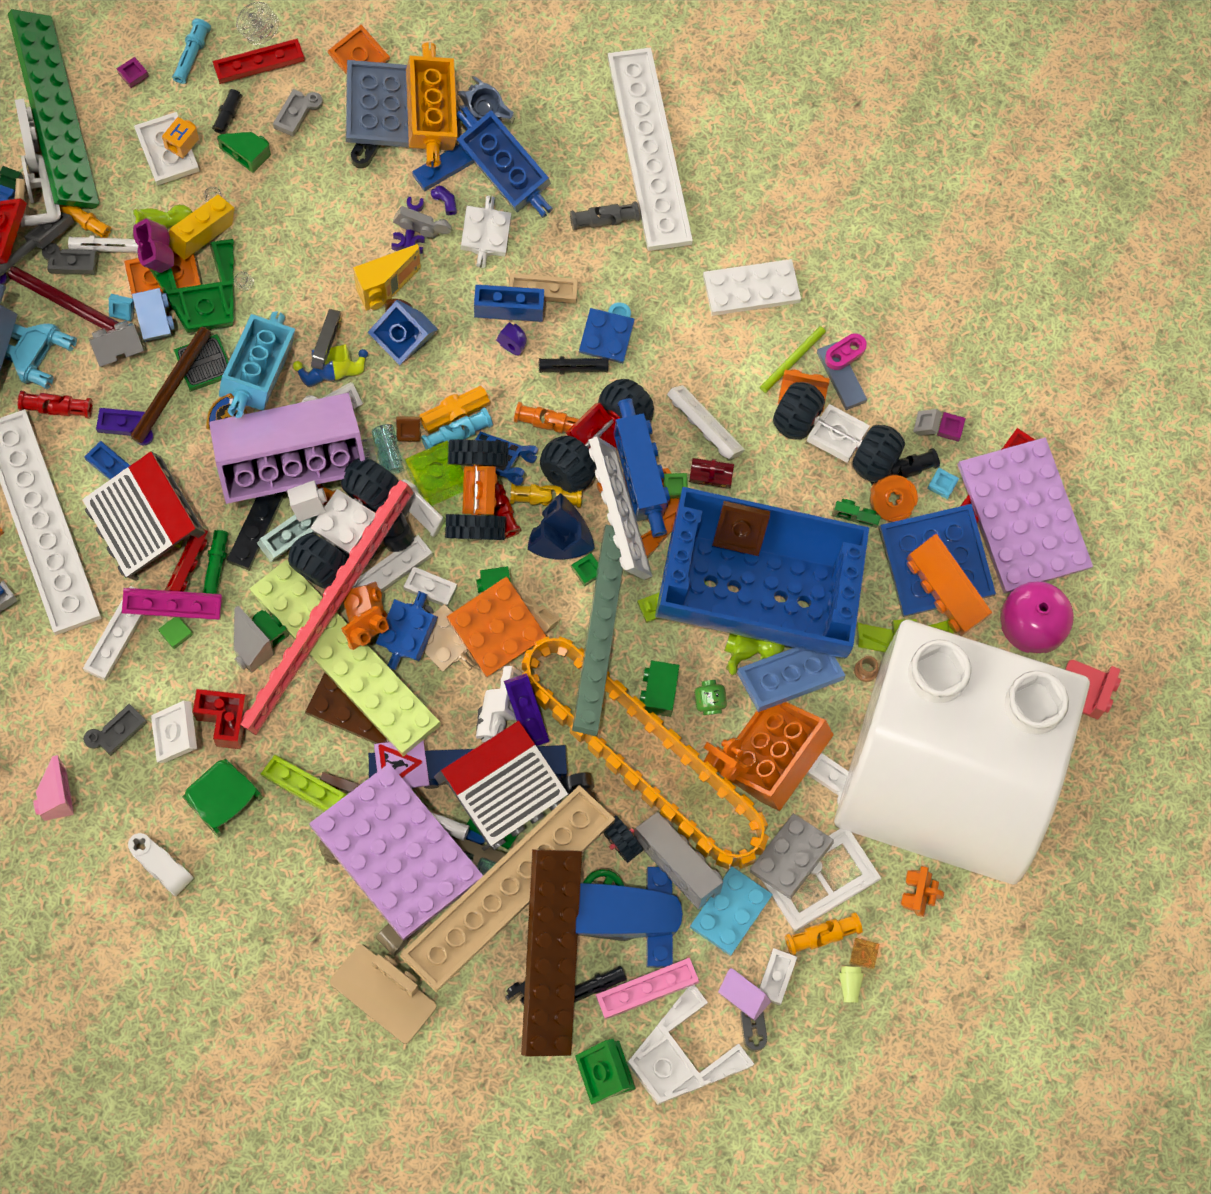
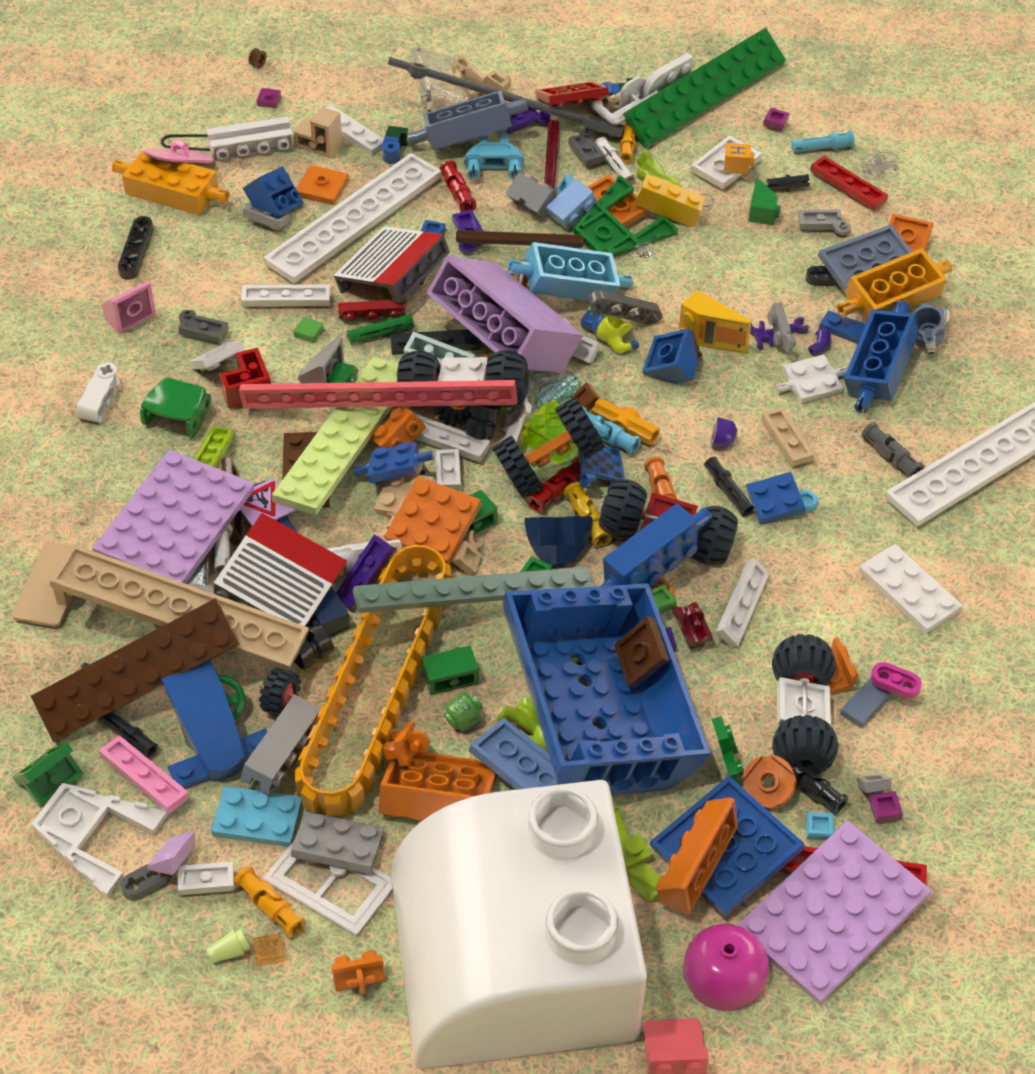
camera: 70 degrees right, 20 degrees down
(153, 245) = (625, 171): magenta brick -> none
(171, 603) = (327, 308): dark pink tile -> none
(307, 500) = (462, 341): white brick -> none
(364, 627) = (373, 426): orange hips -> none
(508, 303) = (752, 414): blue brick -> none
(620, 508) = (585, 563): white plate -> none
(792, 359) = (870, 651): lime bar -> none

